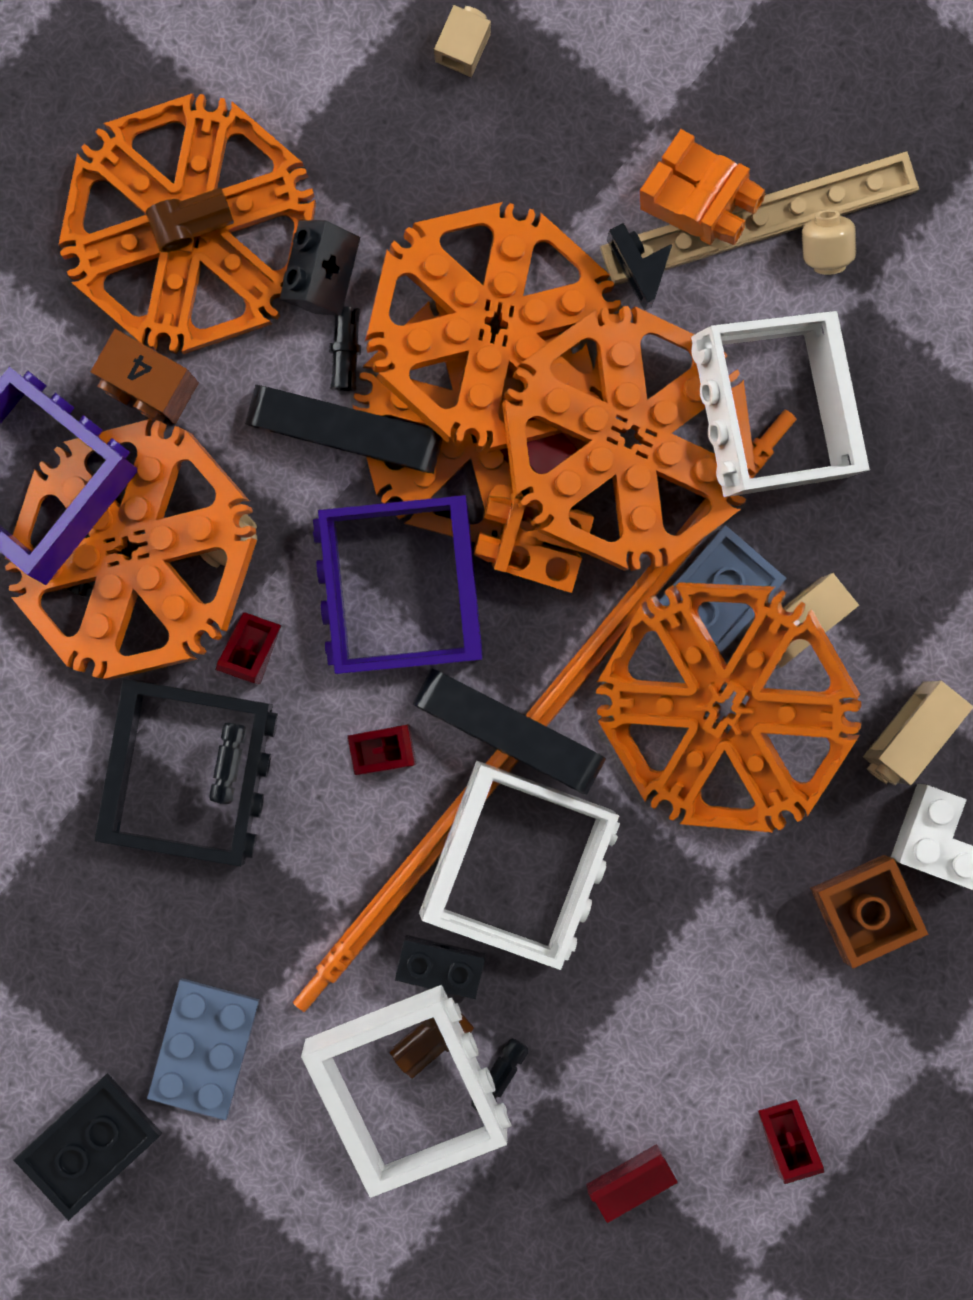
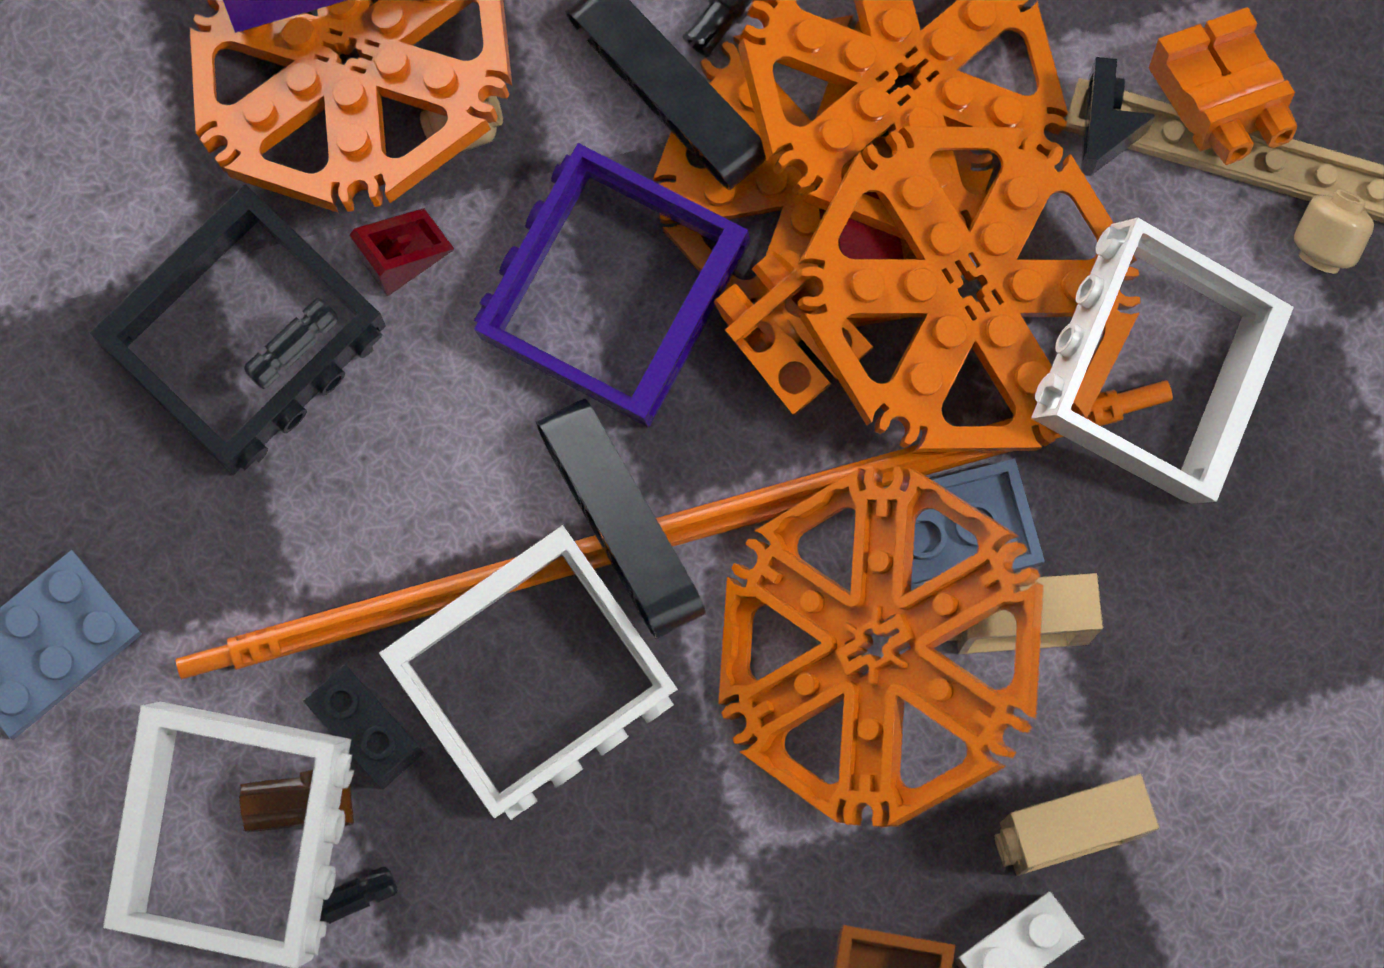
camera: 40 degrees right, 10 degrees down
(382, 749) = (471, 450): dark red slope -> none

